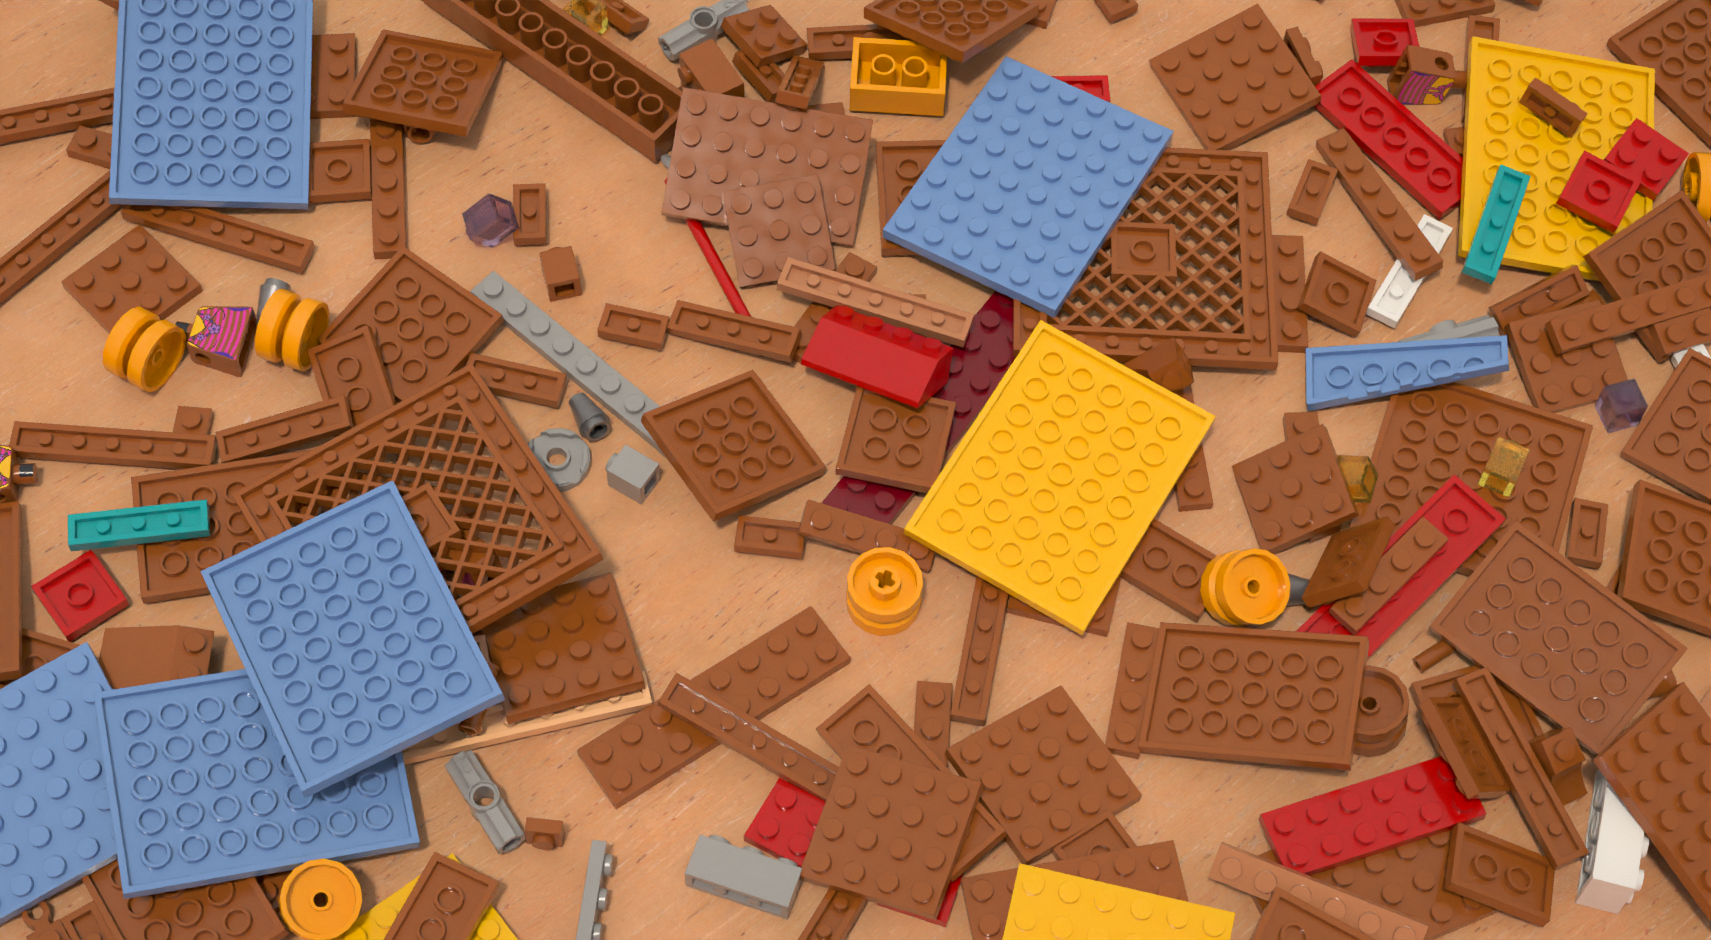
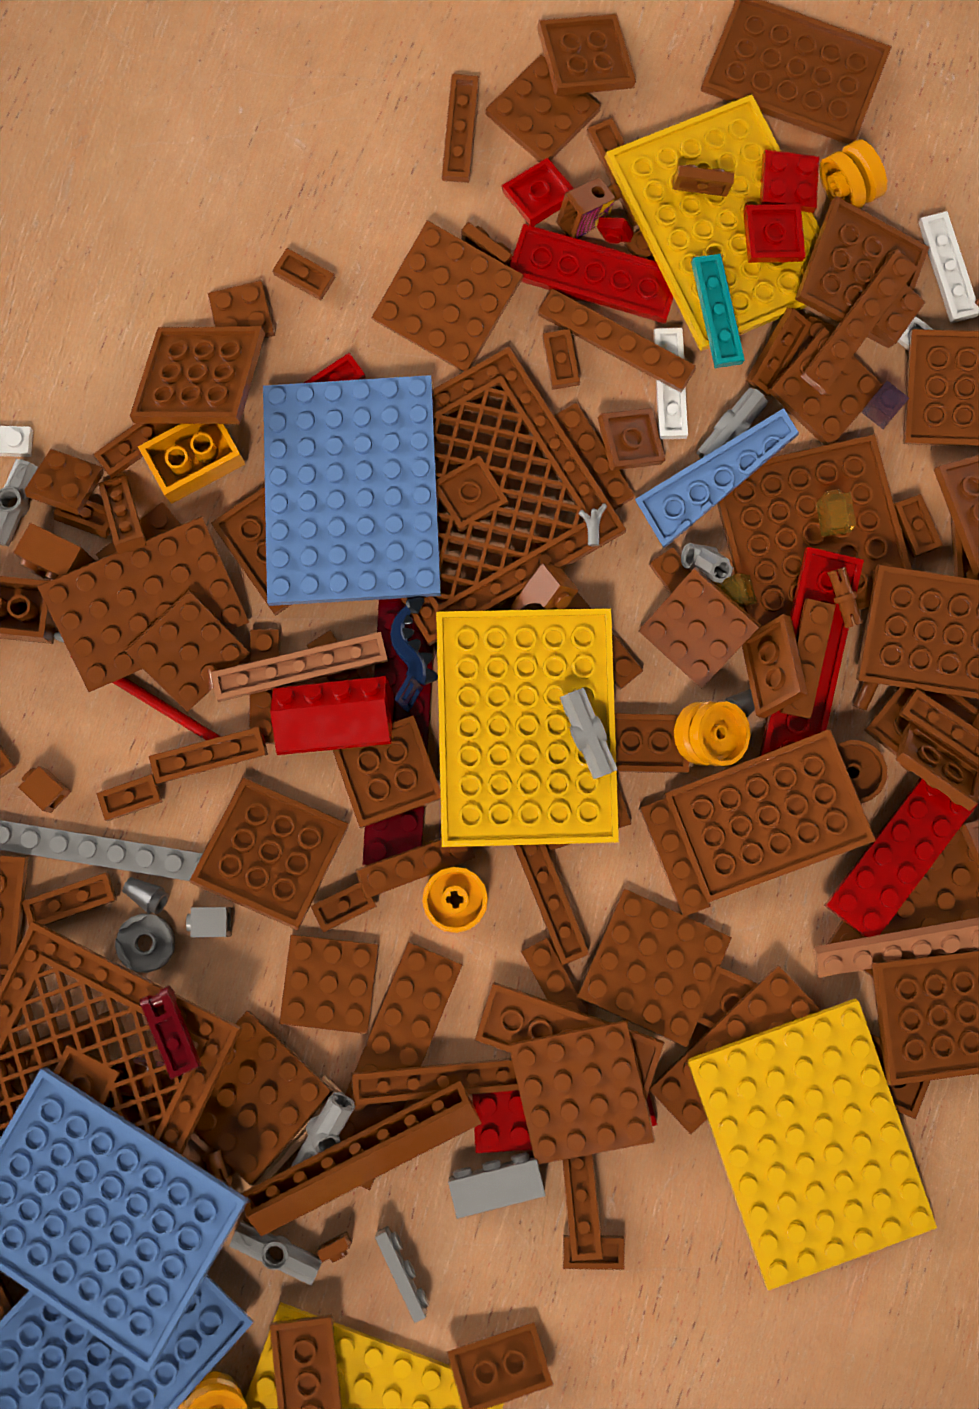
camera: 30 degrees left, 20 degrees up
(535, 517) = (170, 1033): none -> dark red plate
(624, 703) = (325, 1128): none -> light grey piece
(631, 754) = (360, 1158): none -> dark orange brick
(707, 599) = (329, 984): none -> dark orange plate
(991, 356) = (409, 653): none -> dark blue piece
(1118, 507) = (588, 733): none -> light grey piece
(1247, 337) = (593, 524): none -> light grey bar
(1344, 436) = (707, 560): none -> light grey piece
(1440, 111) = (615, 230): none -> red plate
(1463, 538) = (845, 597): none -> dark orange pin

